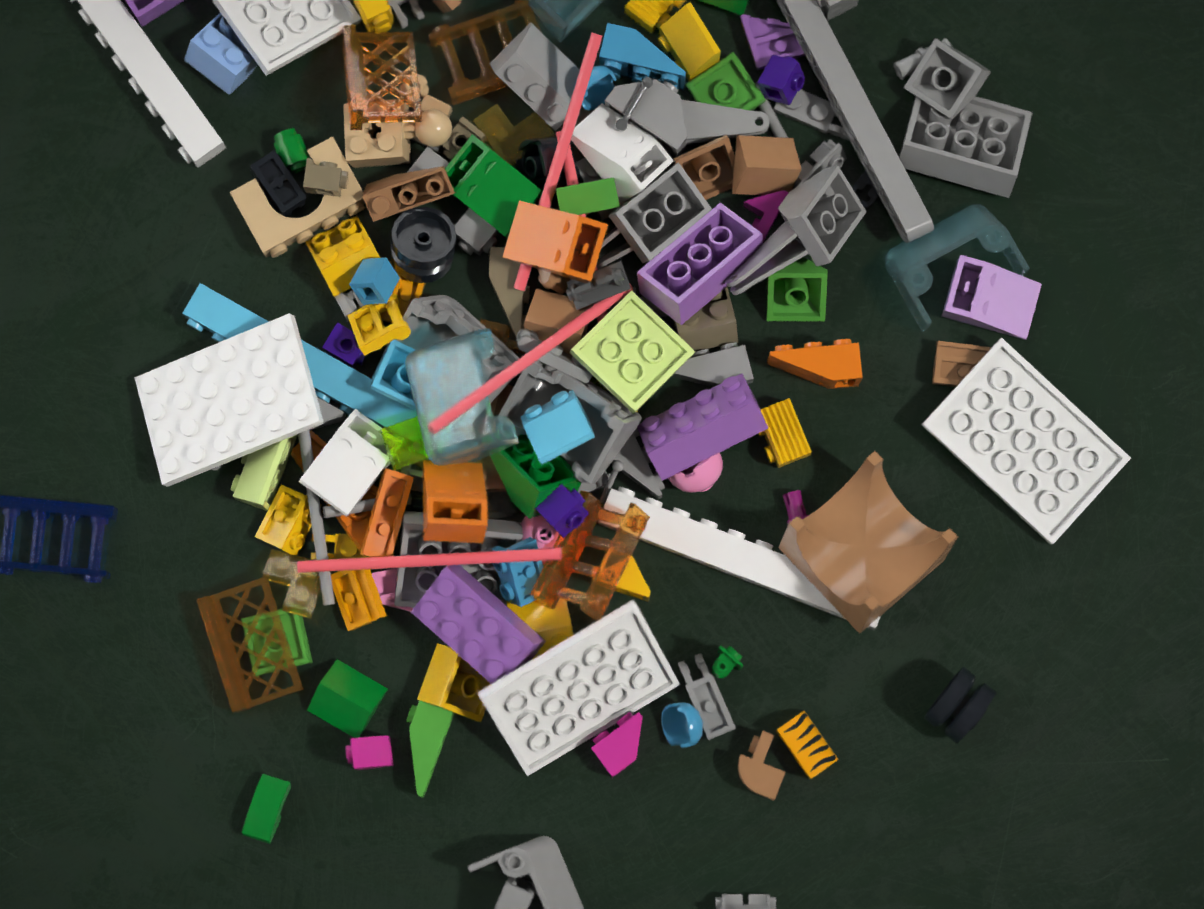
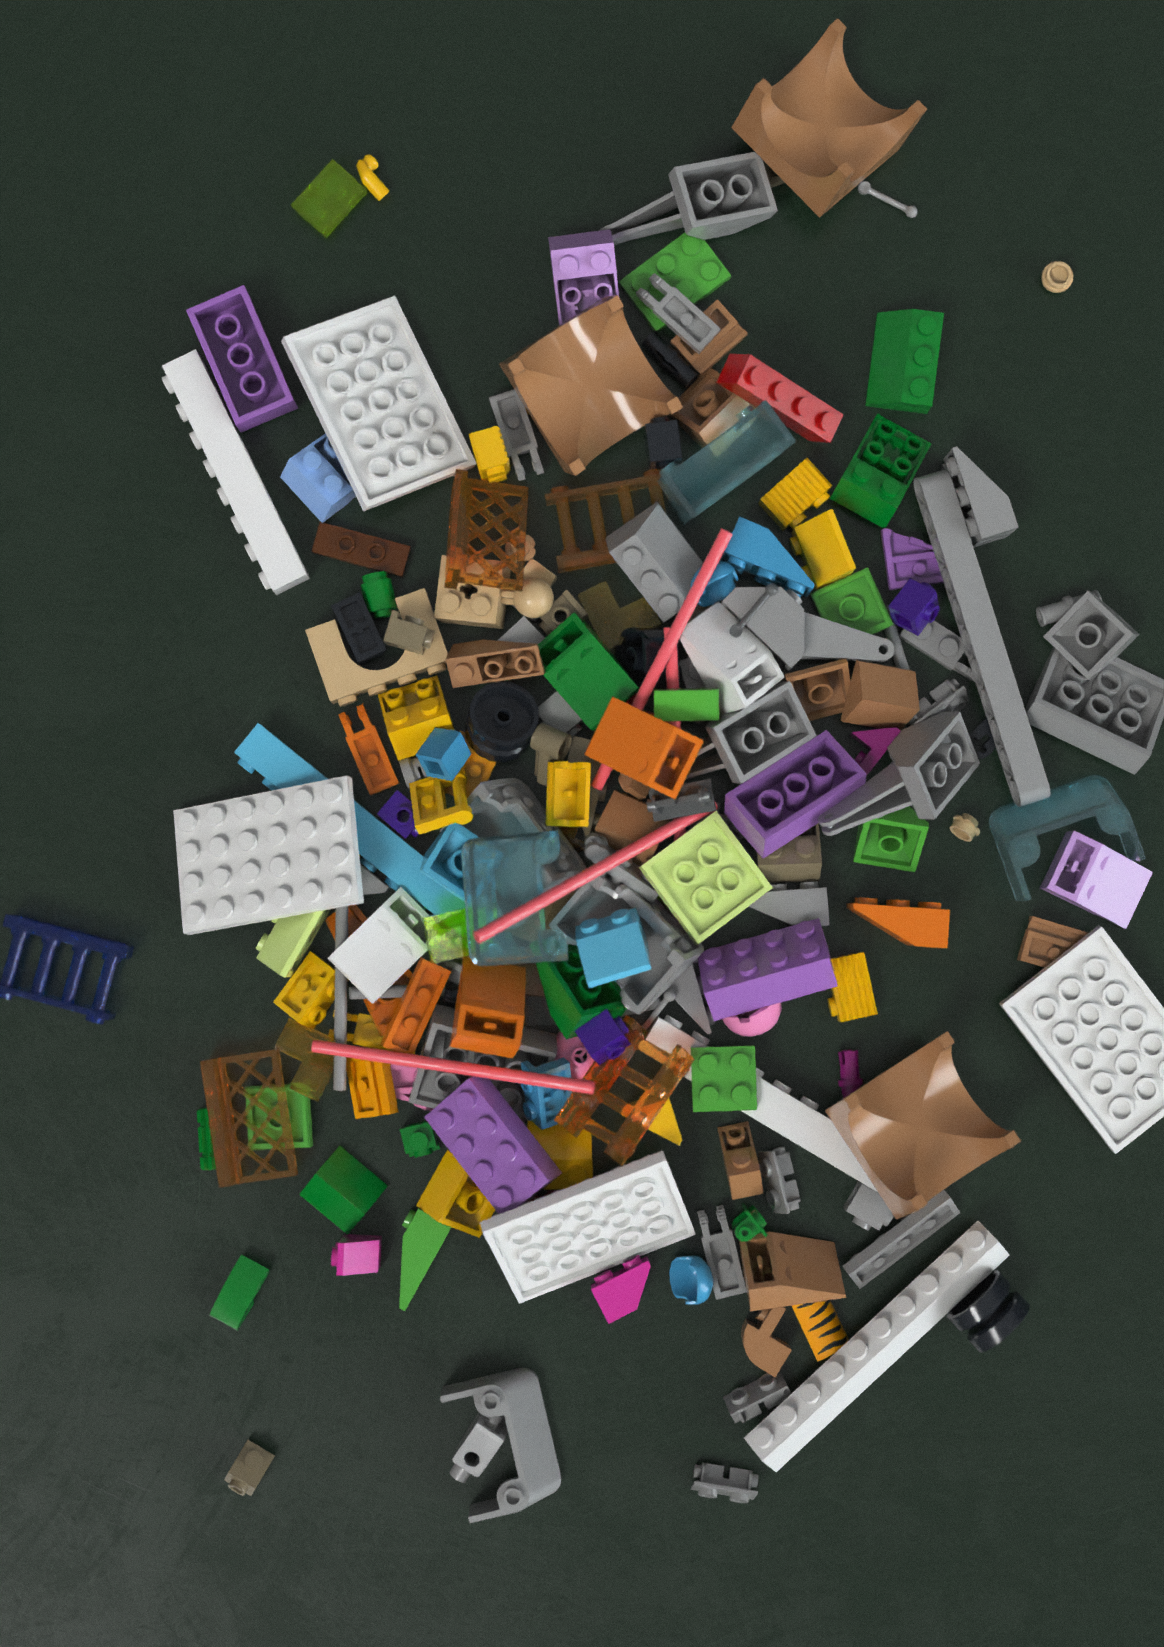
camera: 10 degrees right, 5 degrees up
(213, 675) = (207, 1160): none -> green axle
(268, 113) = (361, 549): none -> reddish brown plate
(307, 296) = (369, 753): none -> orange hinge
(410, 638) = (419, 1139): none -> green brick
(472, 263) = (550, 746): none -> dark tan piece
(494, 298) = (568, 794): none -> yellow hinge
(680, 533) = (723, 1078): none -> bright green plate
(709, 609) = (740, 1160): none -> medium nougat slope
(751, 634) = (781, 1194): none -> light grey hinge
(769, 699) = (789, 1271): none -> medium nougat slope
(772, 815) = (744, 1401): none -> light grey hinge
(834, 632) = (867, 1207): none -> light grey brick
(863, 271) = (965, 827): none -> tan plate
(863, 756) = (876, 1346): none -> white brick
(870, 656) = (901, 1239): none -> light grey plate

